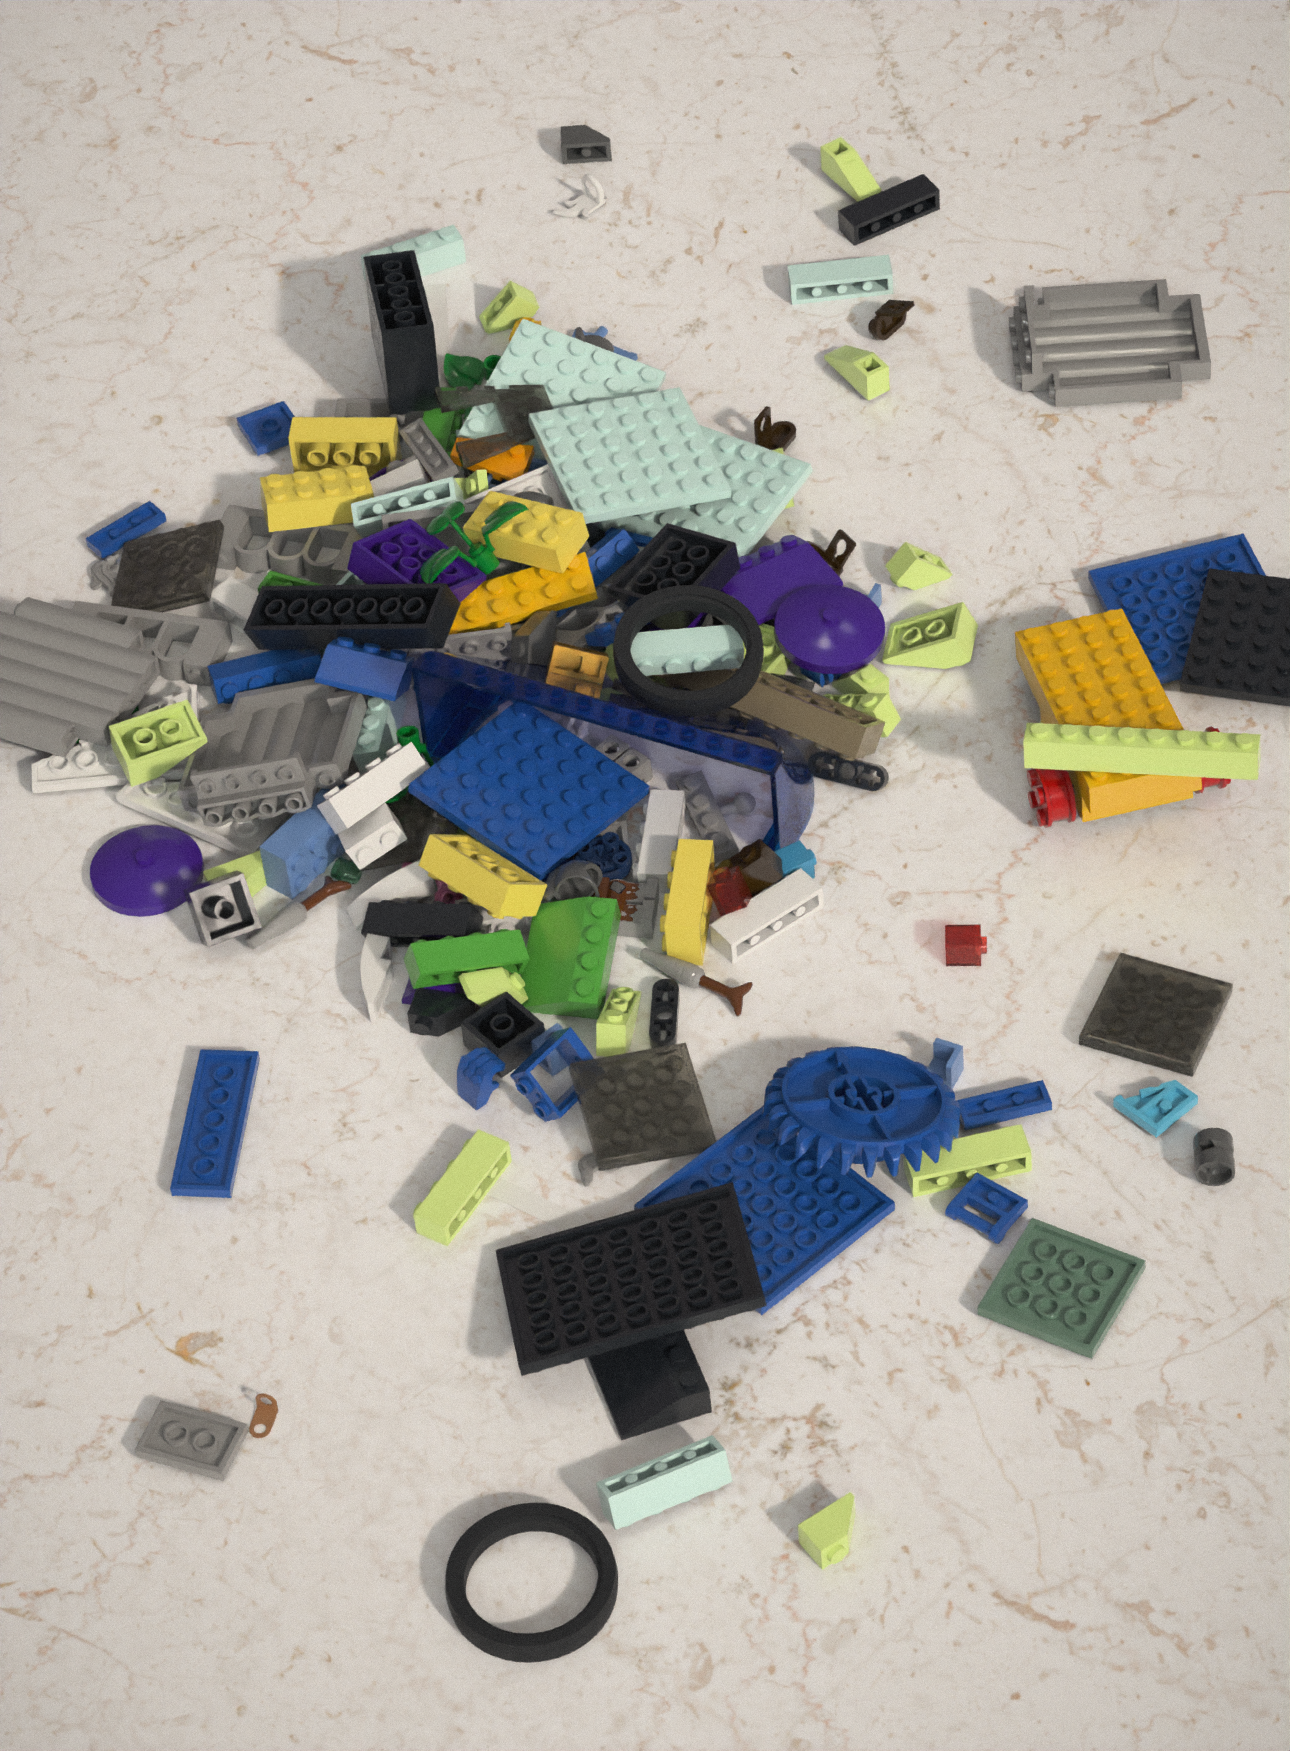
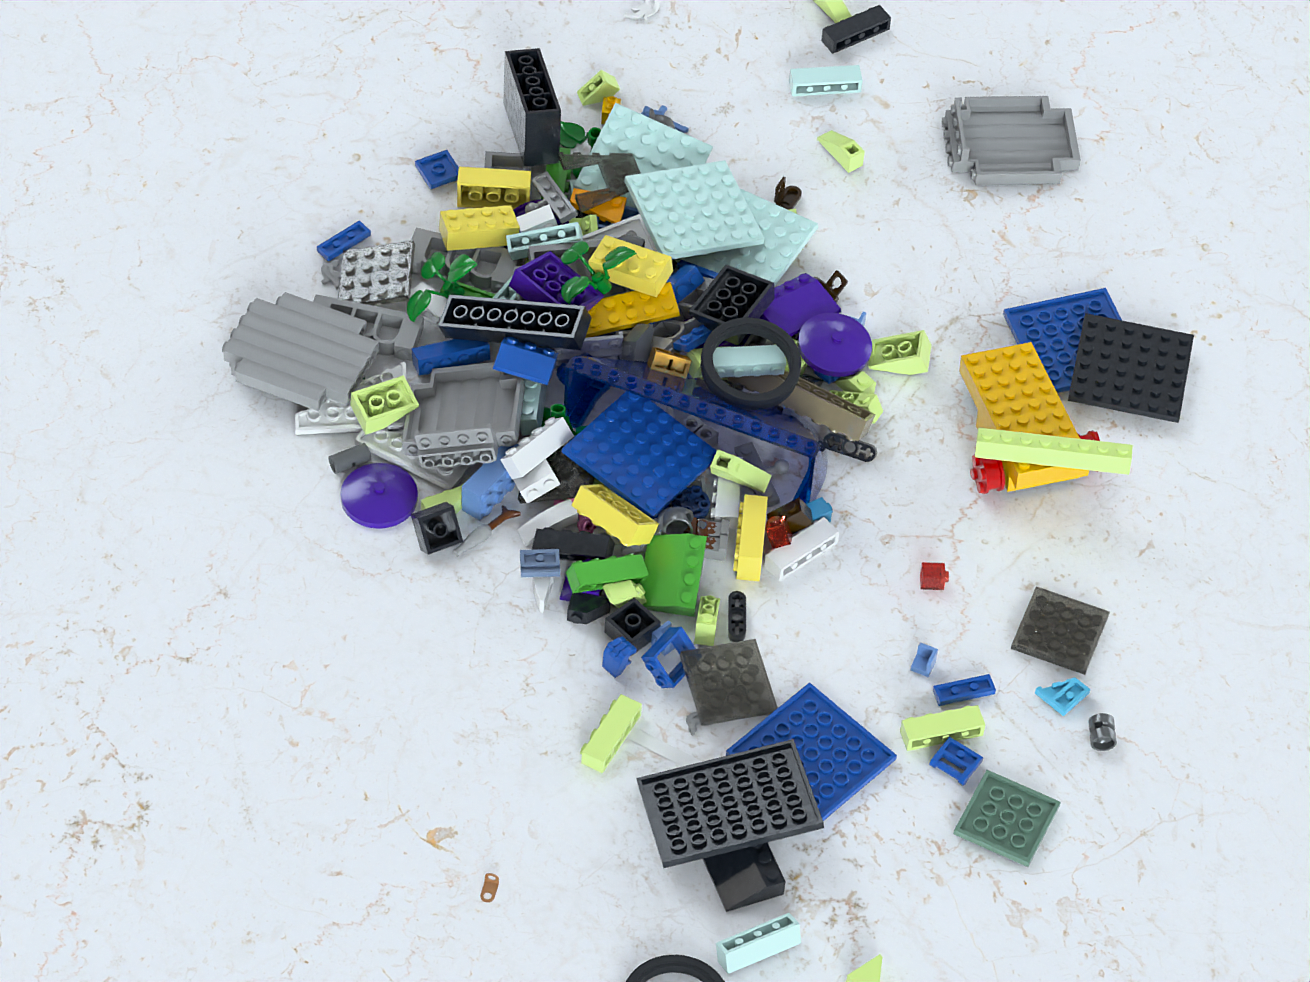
camera: 10 degrees left, 5 degrees up
(107, 820) = (350, 457): none -> dark grey pin
(191, 1440) = (444, 903): light grey plate -> none
(215, 1123) = (441, 681): blue plate -> none
(273, 549) = (459, 267): none -> green plant
(346, 871) = (516, 503): clear green hose -> none
(369, 949) = (540, 563): none -> sand blue plate
(433, 250) = (548, 39): light aqua brick -> none
(674, 808) = (739, 471): none -> yellowish green slope
(694, 977) = (755, 590): piece -> none
(862, 1108) = (876, 691): blue gear -> none
(889, 318) = (861, 112): dark brown bracket -> none
(916, 568) = (888, 300): yellowish green slope -> none

